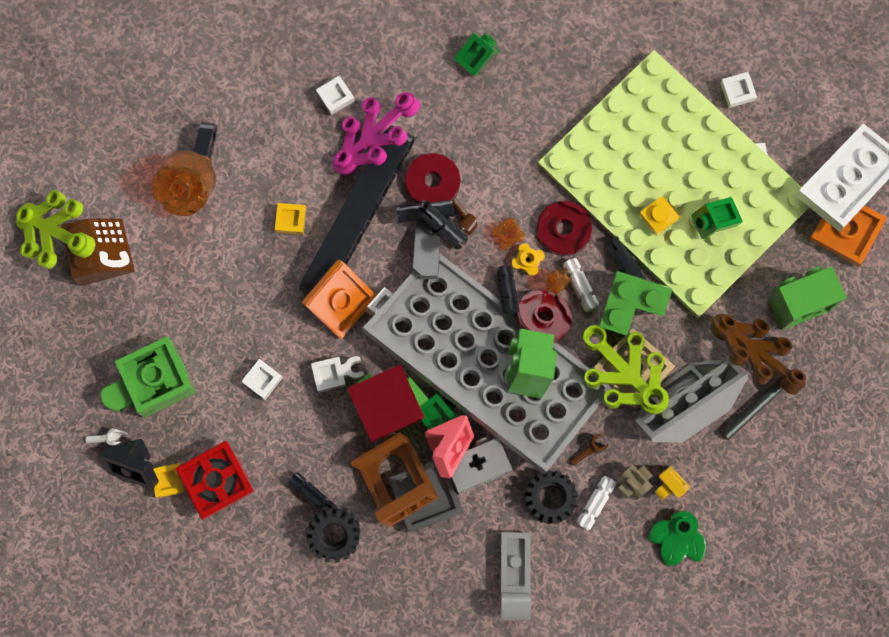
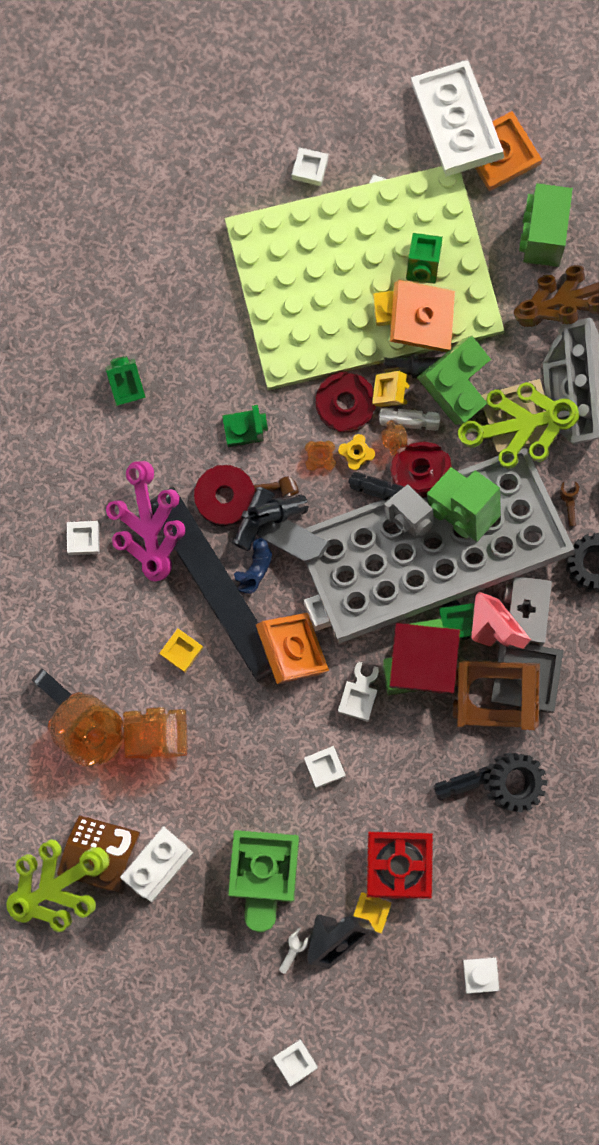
camera: 55 degrees left, 0 degrees up
(21, 489) = (295, 1062): none -> white plate
(109, 294) = (157, 864): none -> white panel
(167, 594) = (481, 975): none -> white plate
(211, 235) = (155, 733): none -> clear orange brick
(388, 239) = (260, 563): none -> dark blue piece
(496, 163) = (245, 427): none -> green bracket
(499, 325) = (410, 512): none -> light grey brick
(593, 255) = (390, 389): none -> yellow tile
(667, 243) = (422, 316): none -> plate

